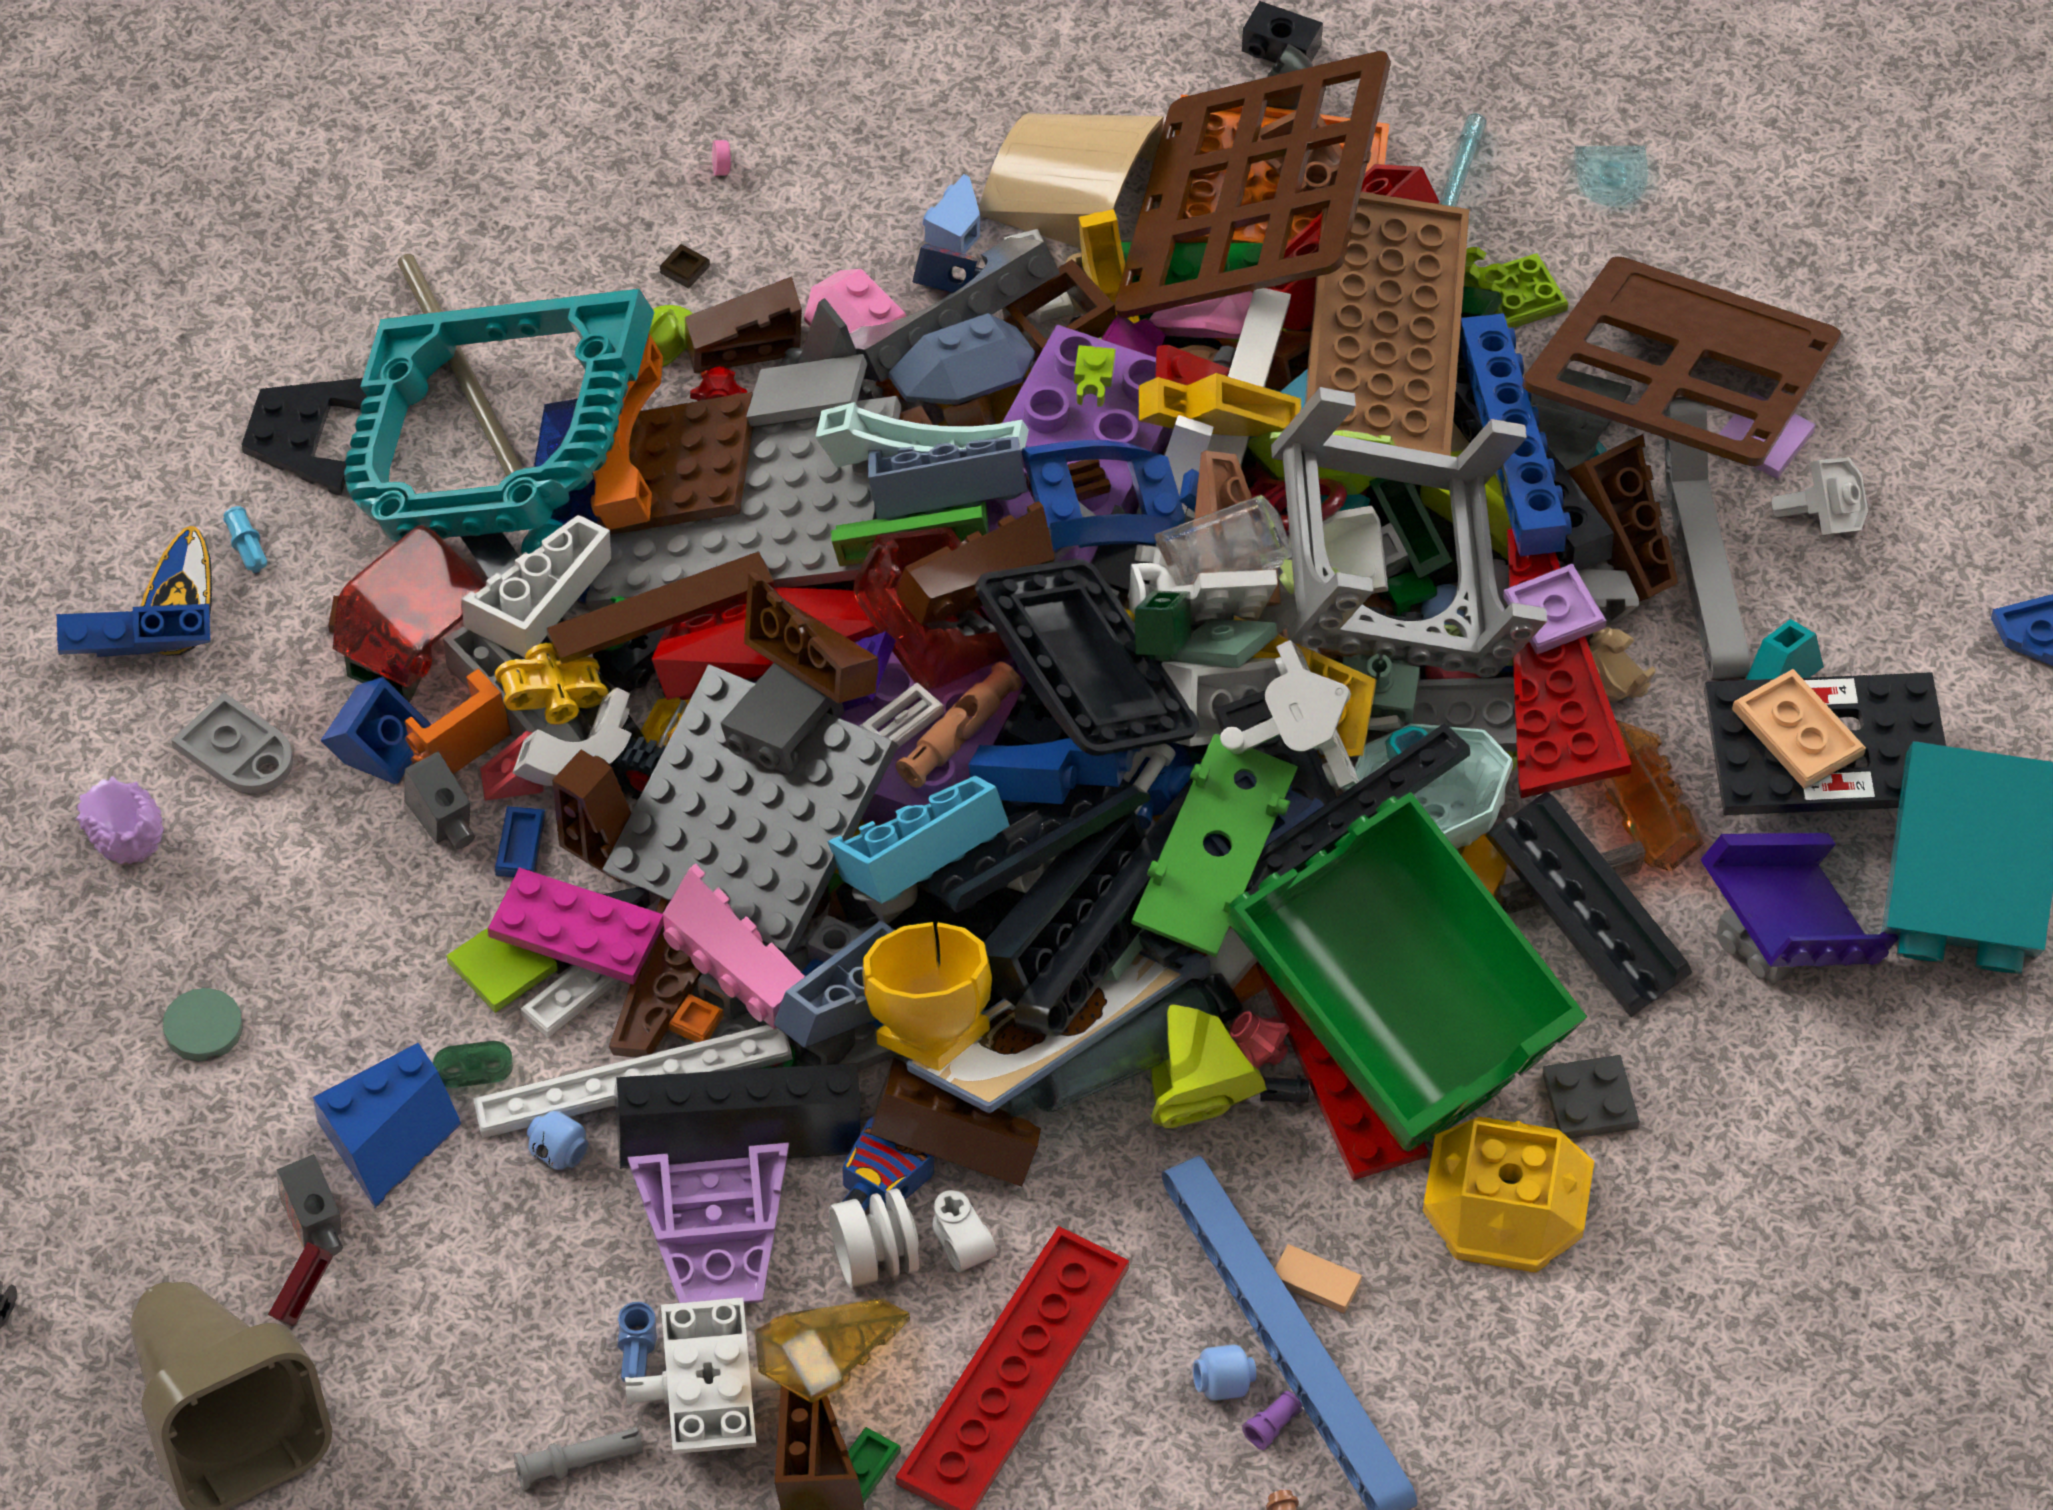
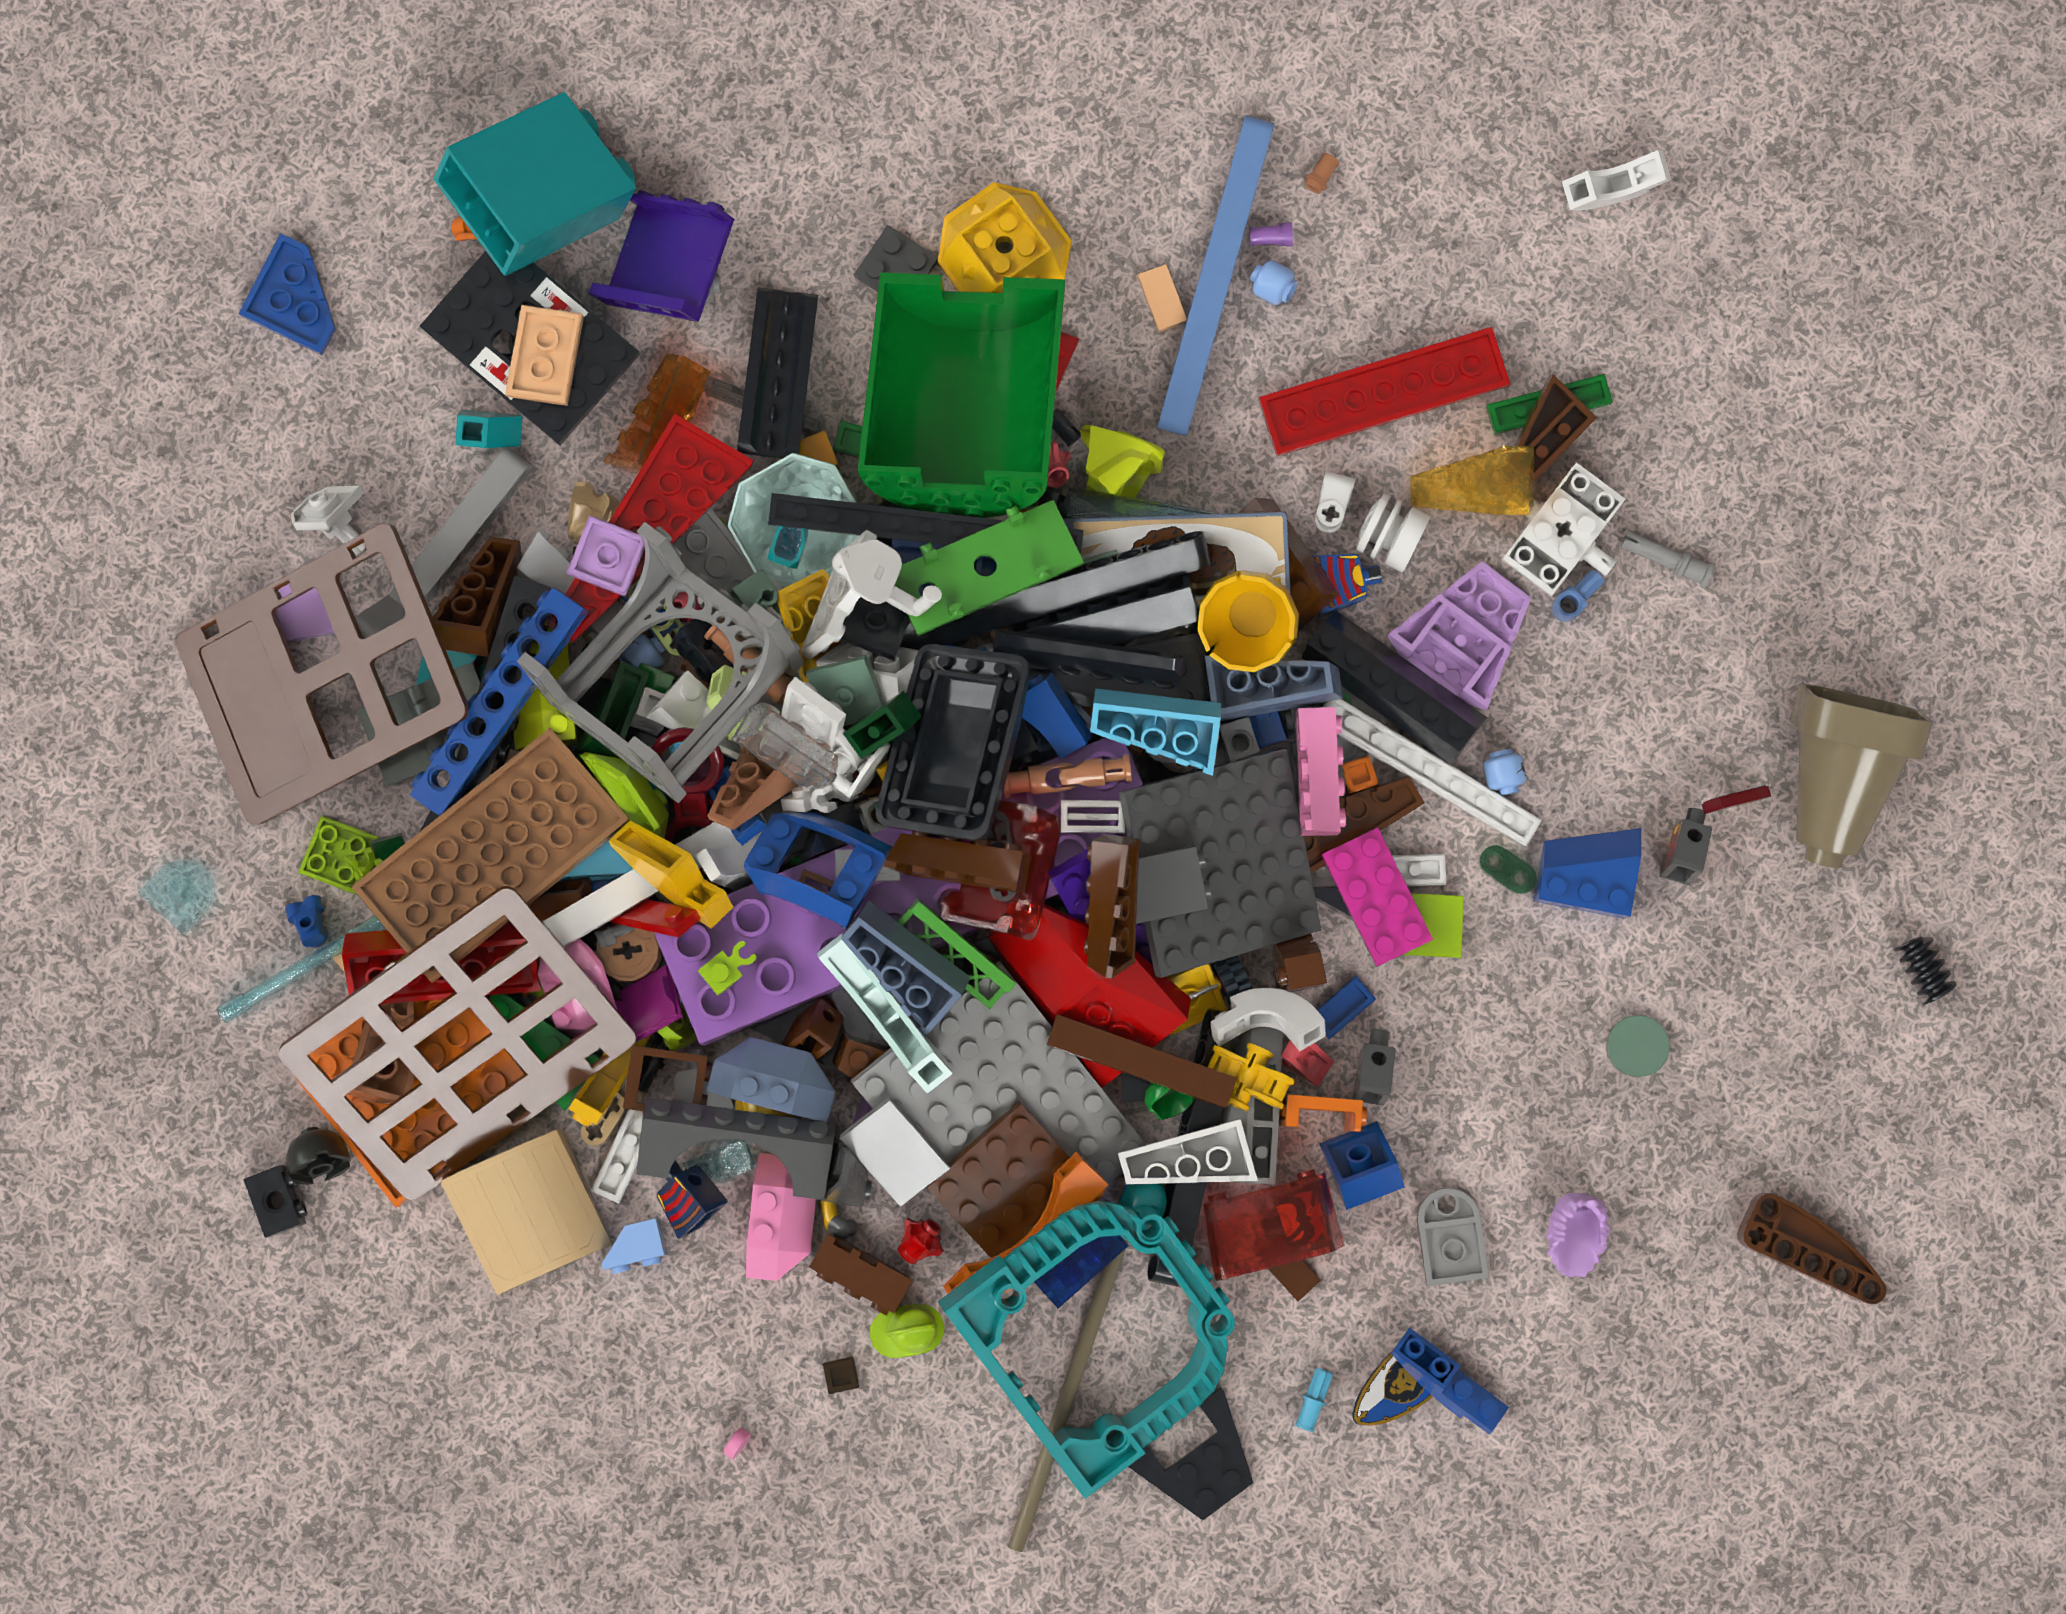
camera: 135 degrees left, 30 degrees up
(1488, 225) = (308, 921): none -> blue plate

